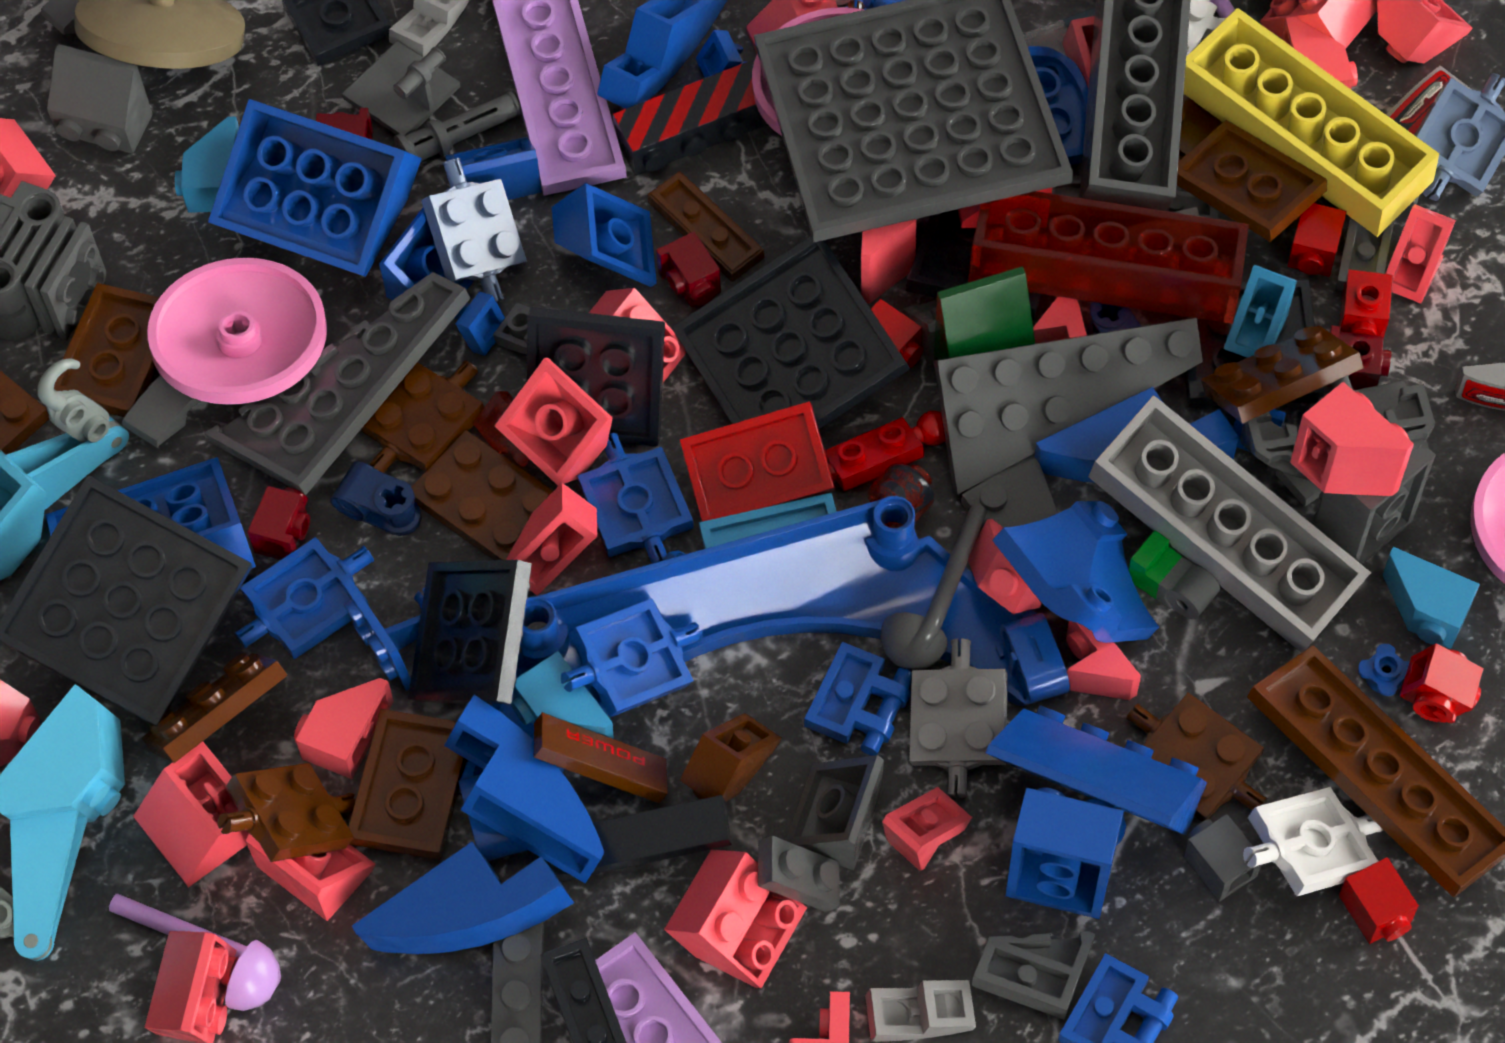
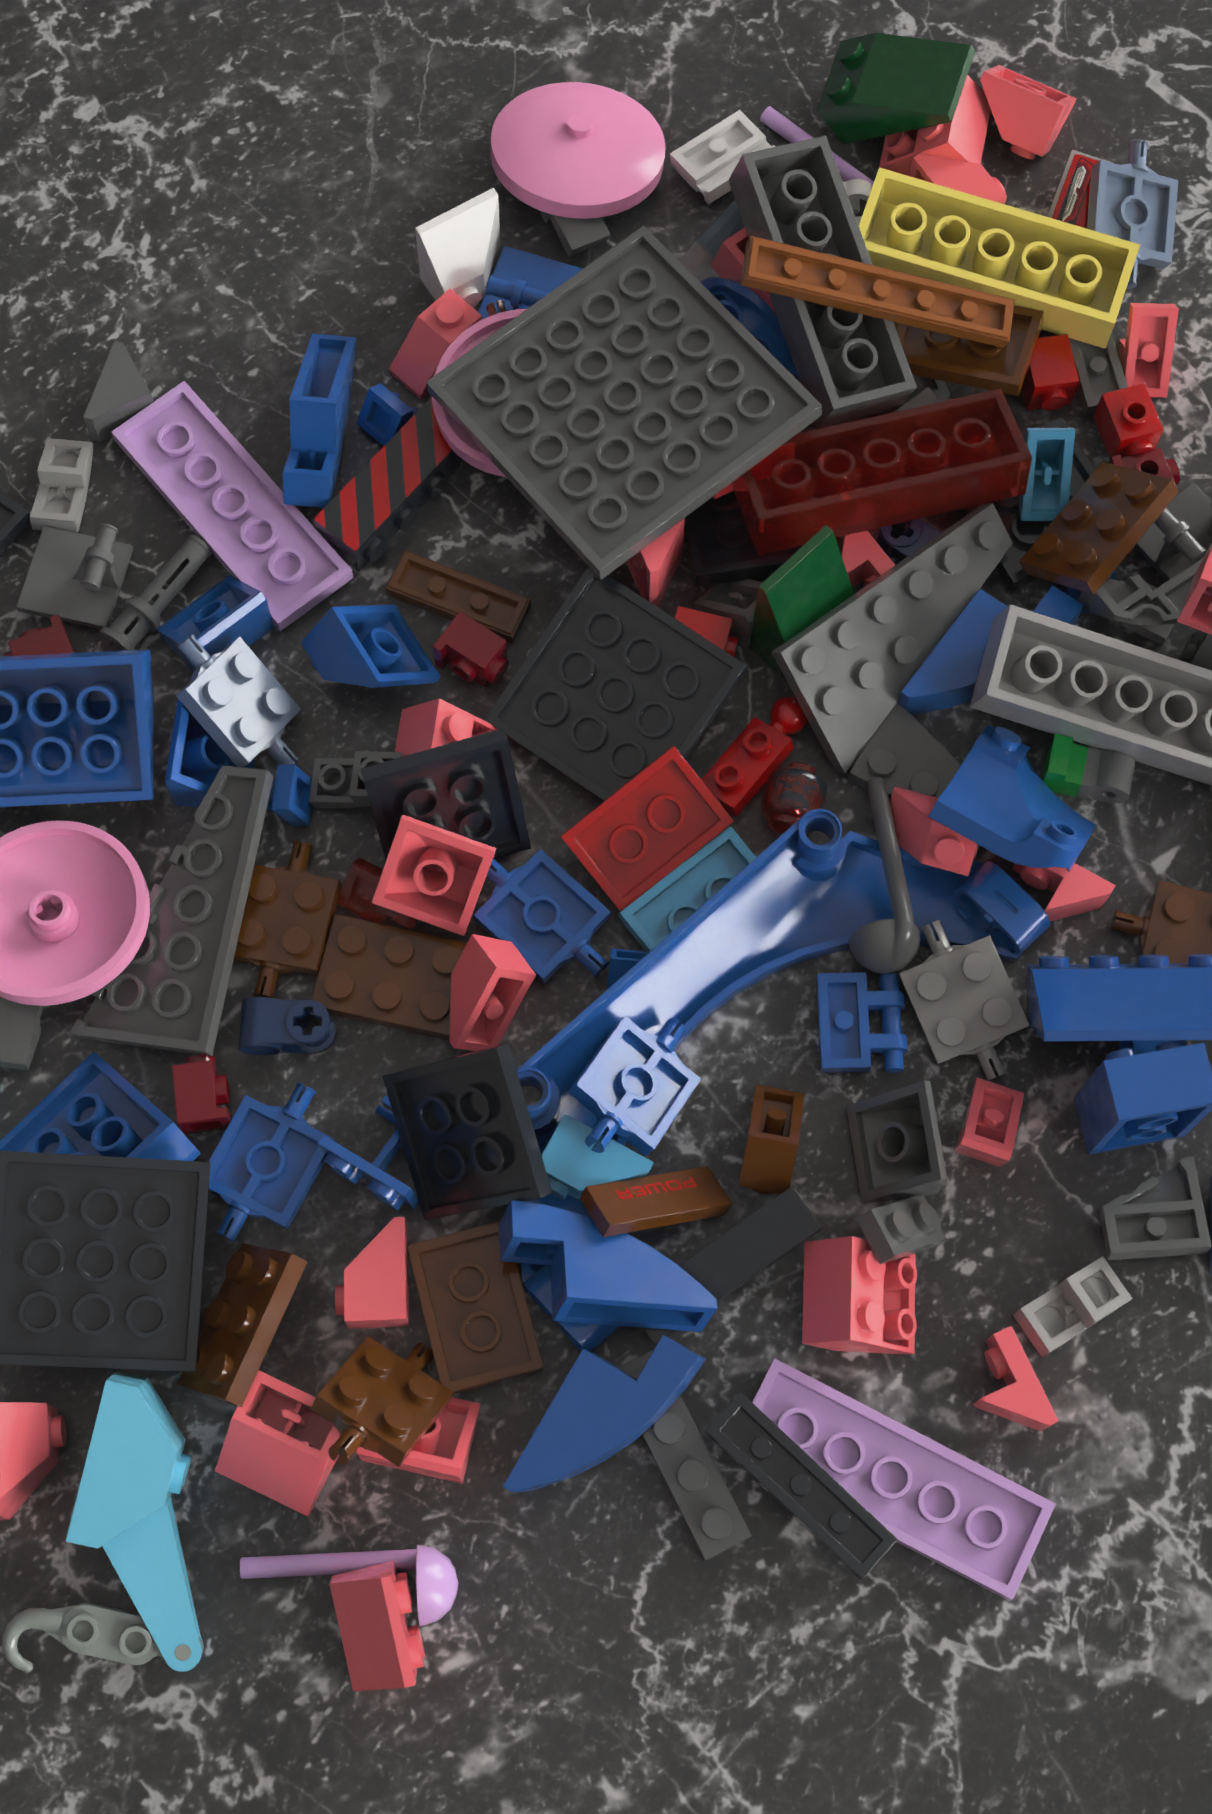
camera: 30 degrees left, 10 degrees up
(1176, 104) = (877, 292): none -> dark orange tile

